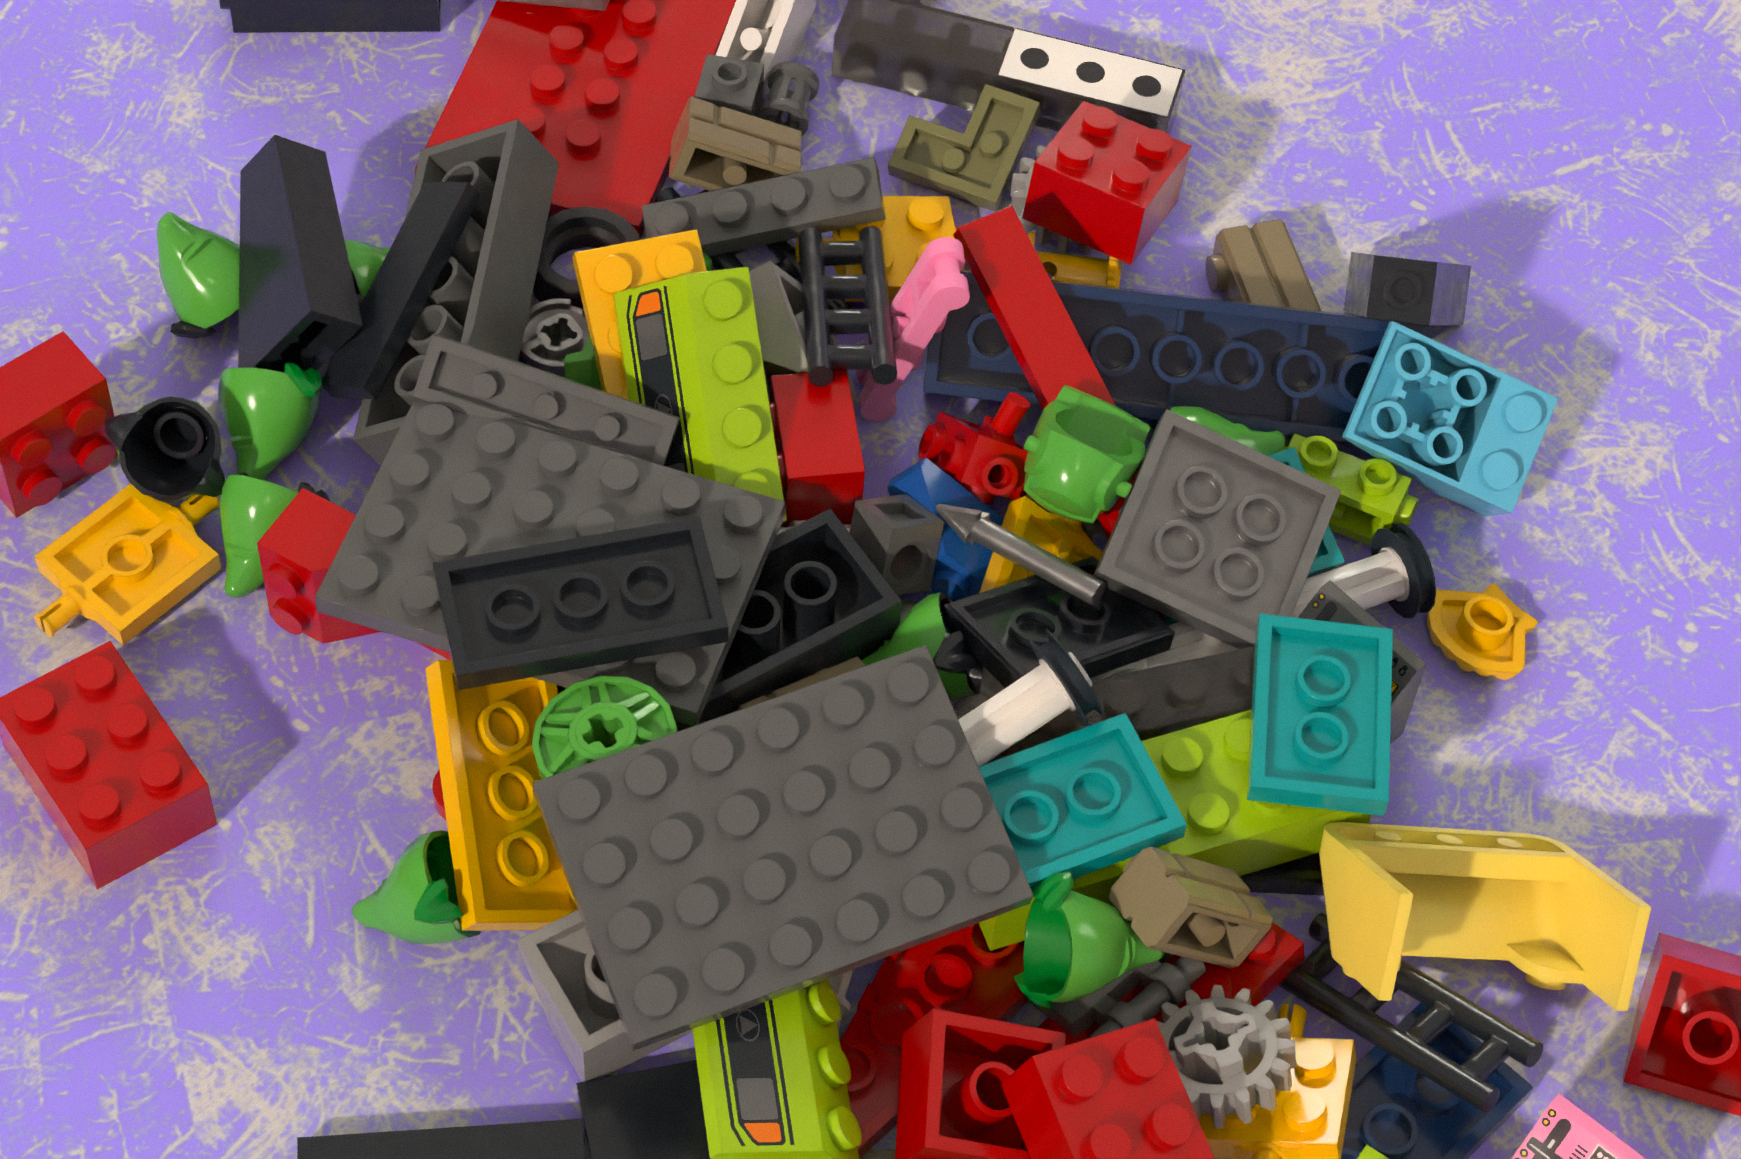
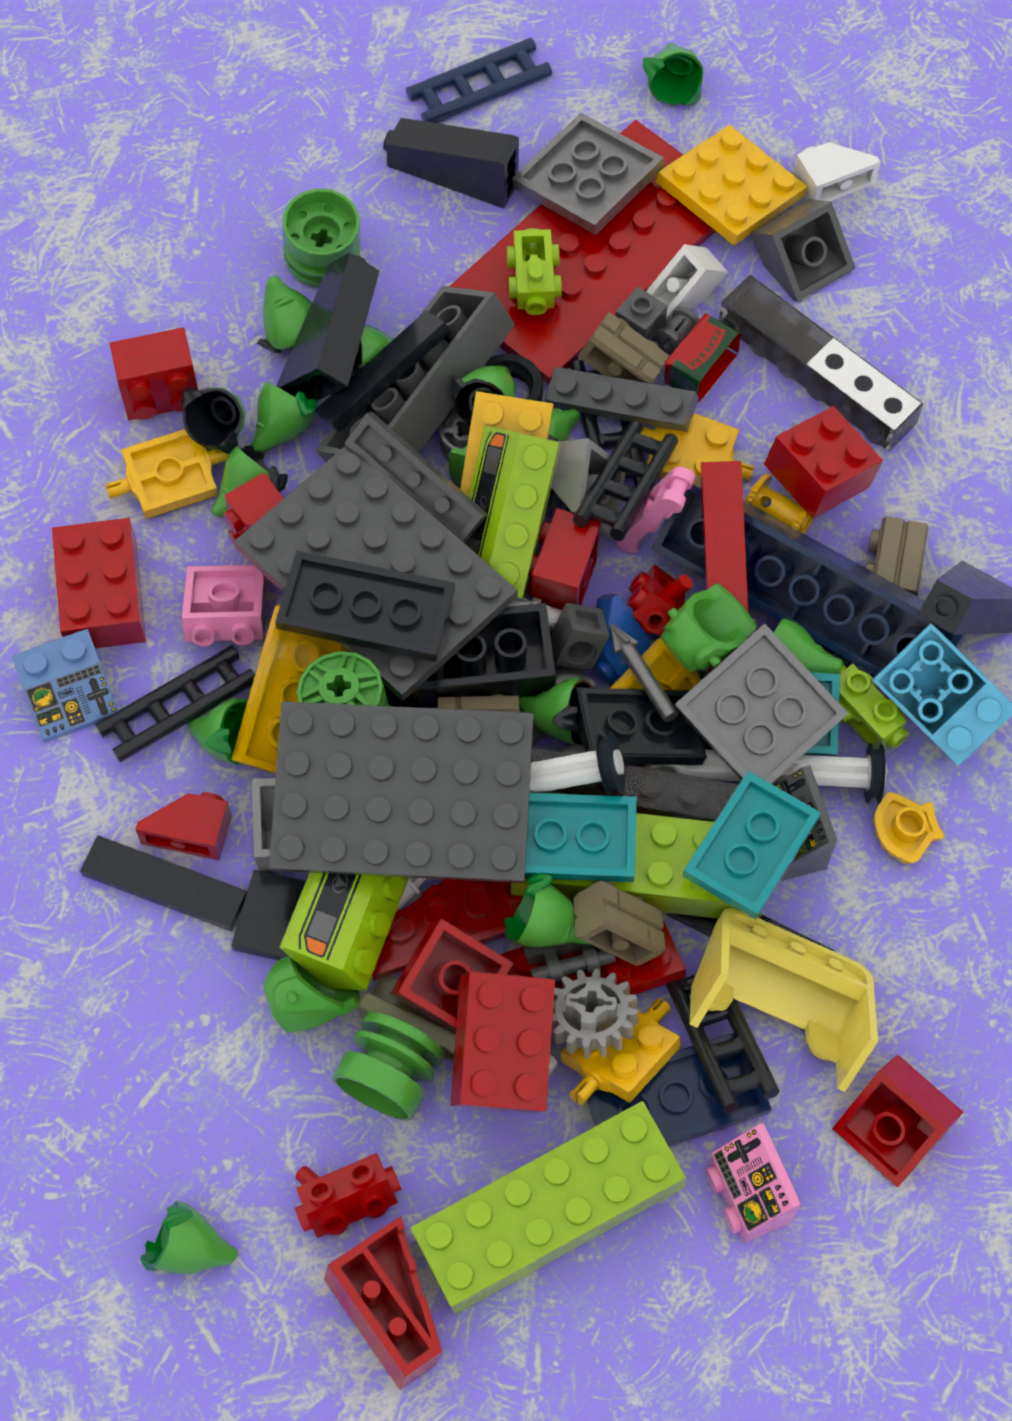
camera: 30 degrees right, 10 degrees up
(126, 934) = (65, 685): none -> medium blue slope
(191, 144) = (318, 231): none -> bright green wheel
(318, 925) = (169, 723): none -> black bar
(321, 715) = (223, 604): none -> bright pink plate
(439, 1062) = (188, 826): none -> red slope
(545, 84) = (534, 277): none -> lime brick
(551, 269) = (483, 379): none -> hat
(842, 113) = (702, 356): none -> red piece
(973, 163) = (767, 413): olive plate -> none

